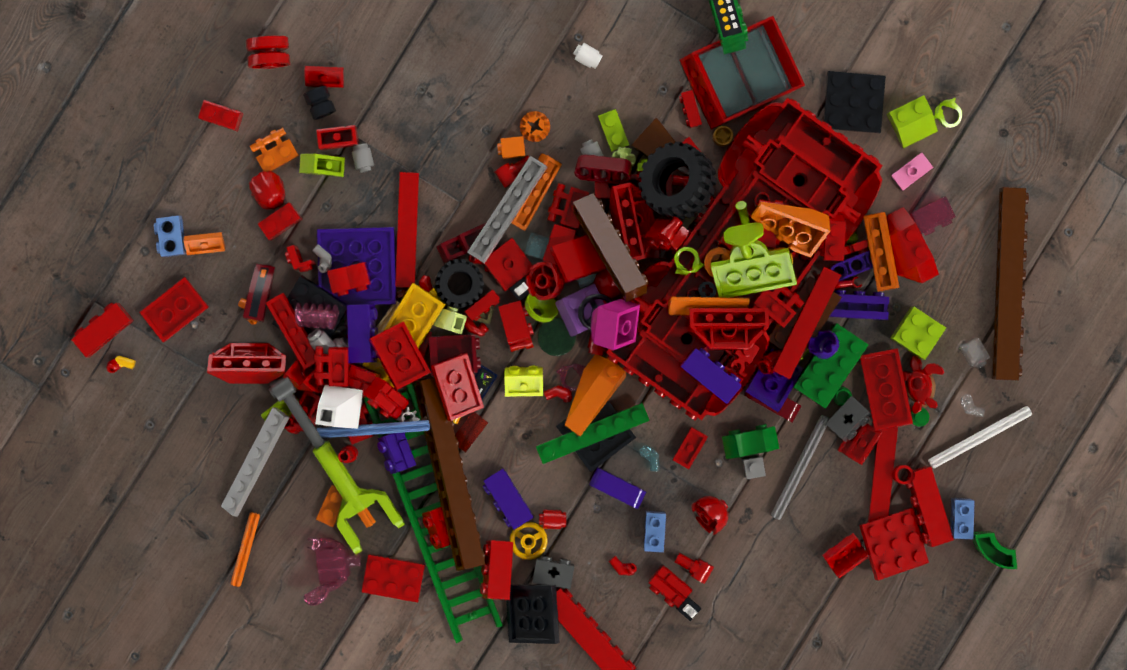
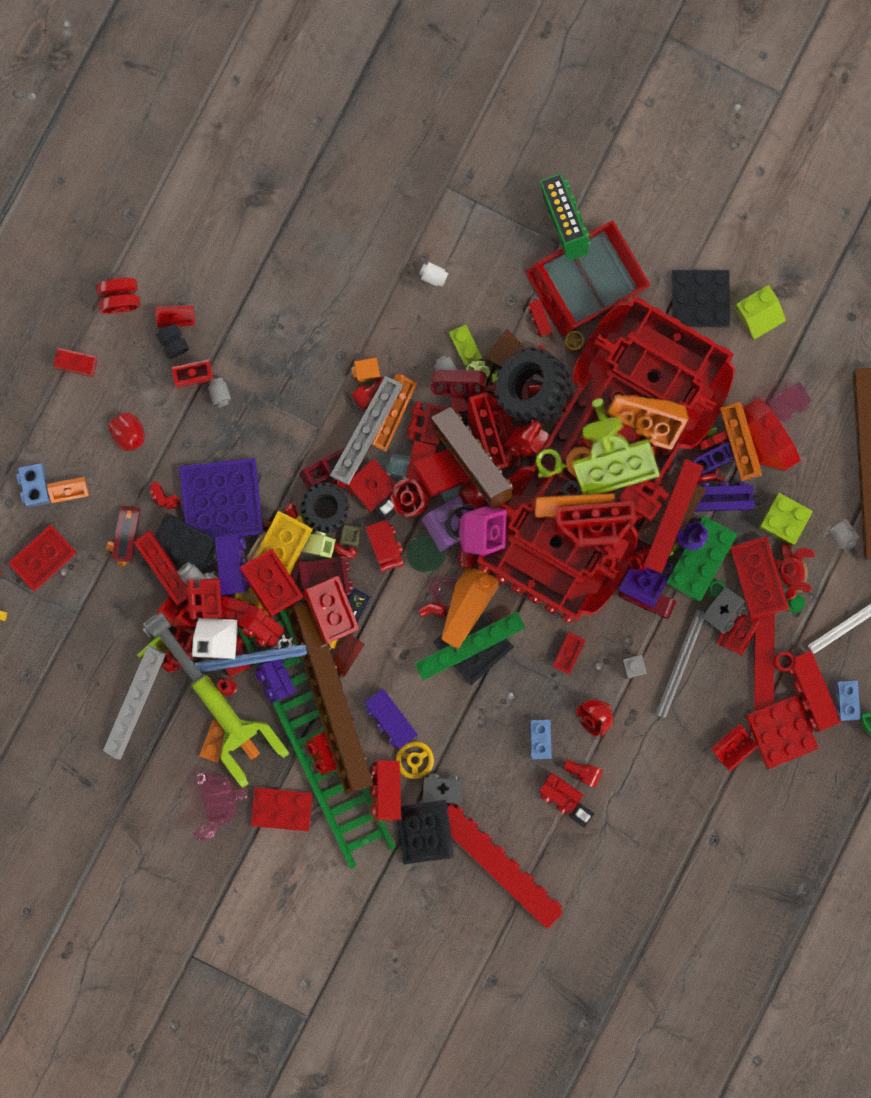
camera: 10 degrees left, 5 degrees down
(245, 549) = (130, 792): orange axle -> none
(247, 363) = (119, 605): red wedge -> none
(278, 155) = (135, 397): orange plate -> none
(280, 221) = (142, 461): red brick -> none
(316, 317) = (185, 551): clear pink piece -> none
(322, 165) = (179, 402): lime slope -> none
(325, 259) = (189, 494): light grey arm -> none
(349, 278) = (215, 511): red brick -> none
(407, 229) = (268, 459): red tile -> none
(483, 305) = (350, 528): red piece -> none
(523, 381) = (397, 600): neon yellow bracket -> none
(537, 135) = (390, 356): orange gear -> none
(547, 308) = (412, 524): lime piece -> none
(552, 519) = (437, 736): red brick -> none
(617, 488) = (499, 699): dark purple beam -> none
(623, 568) = (512, 780): red arm -> none
(652, 456) = (531, 664): clear light blue arm -> none
(711, 375) = (583, 572): dark purple brick -> none
(750, 442) = (629, 641): green brick -> none
(835, 242) = (694, 432): red plate -> none
(912, 171) = (764, 361): bright pink plate -> none
(939, 112) = (795, 292): lime piece -> none
(970, 408) = (844, 590): clear arm -> none

